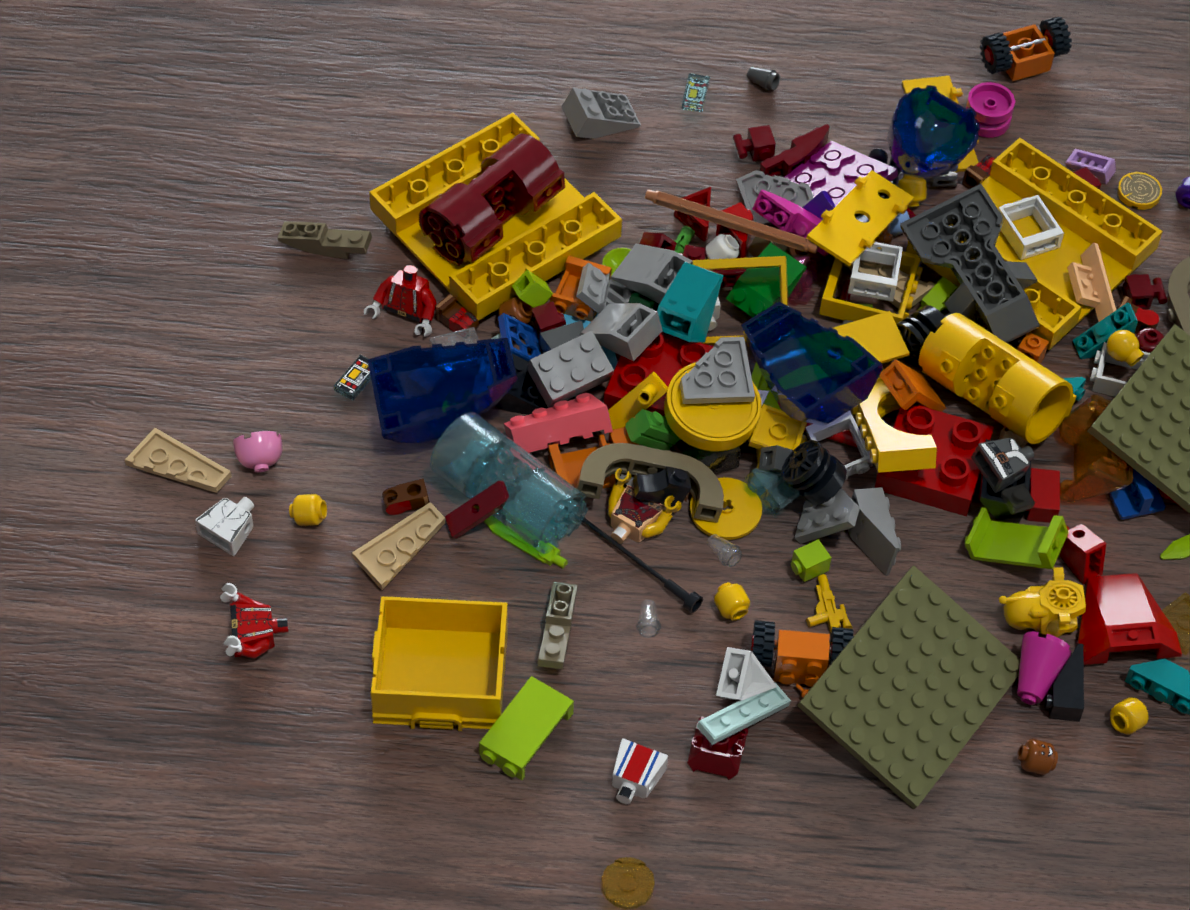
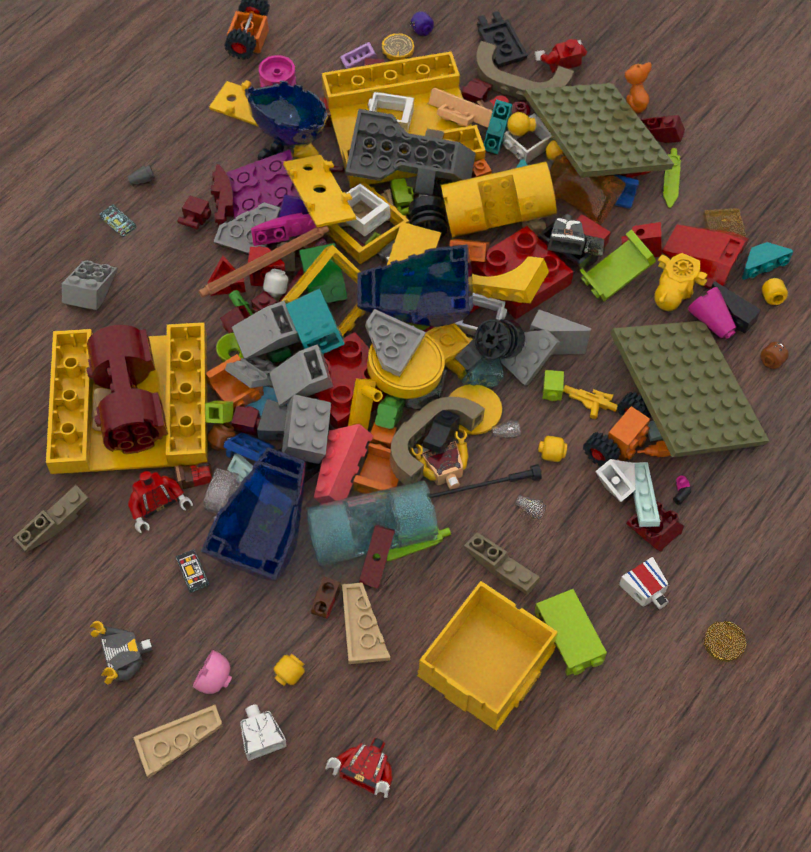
camera: 55 degrees left, 5 degrees up
(230, 369) = (120, 651): none -> dark grey torso
(784, 754) = (683, 490): none -> arm

